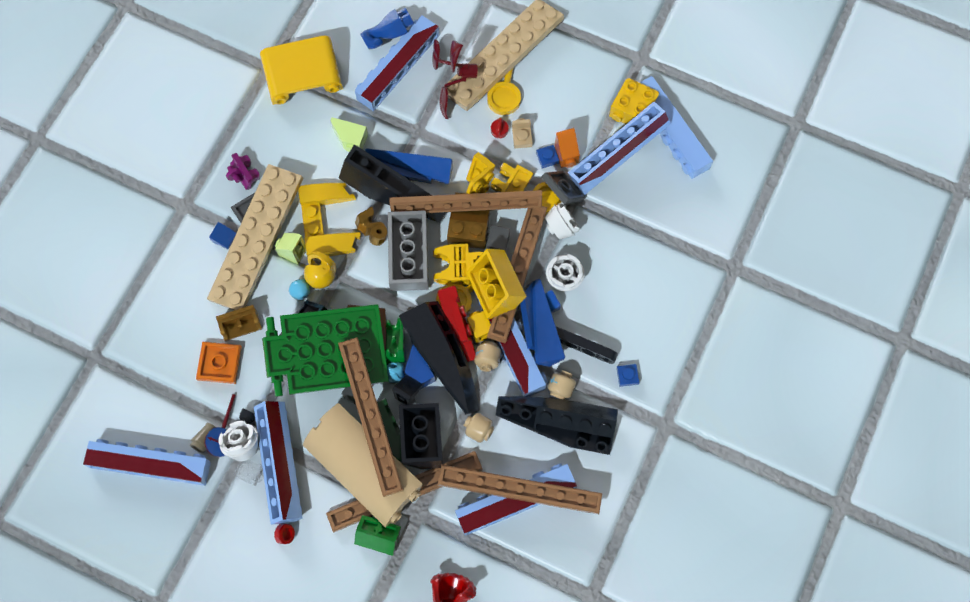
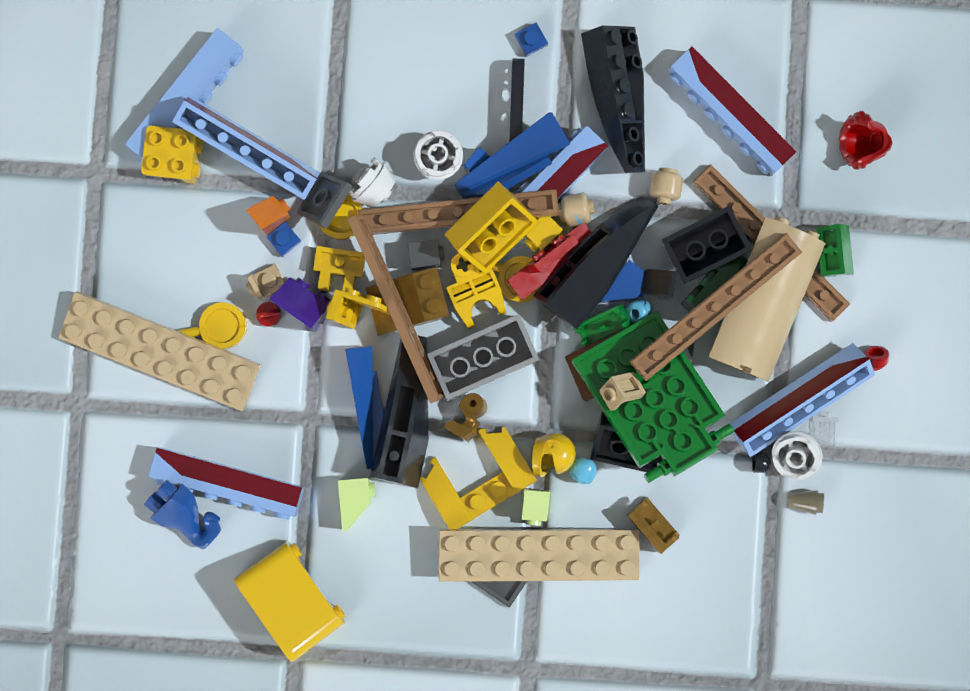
camera: 115 degrees left, 15 degrees up
(147, 462) = (862, 554): brick -> none
(212, 437) = (801, 488): blue piece -> none
(218, 362) = (709, 528): orange tile -> none
(222, 235) = (550, 598): blue slope -> none
(238, 171) = (459, 618): magenta hips -> none
(339, 325) = (621, 389): none -> tan bracket
(464, 70) = (214, 388): dark red plant -> none
(497, 144) = (302, 303): none -> dark purple slope
(520, 489) = (723, 108): medium nougat tile -> none
(561, 385) = (576, 109): tan head -> none

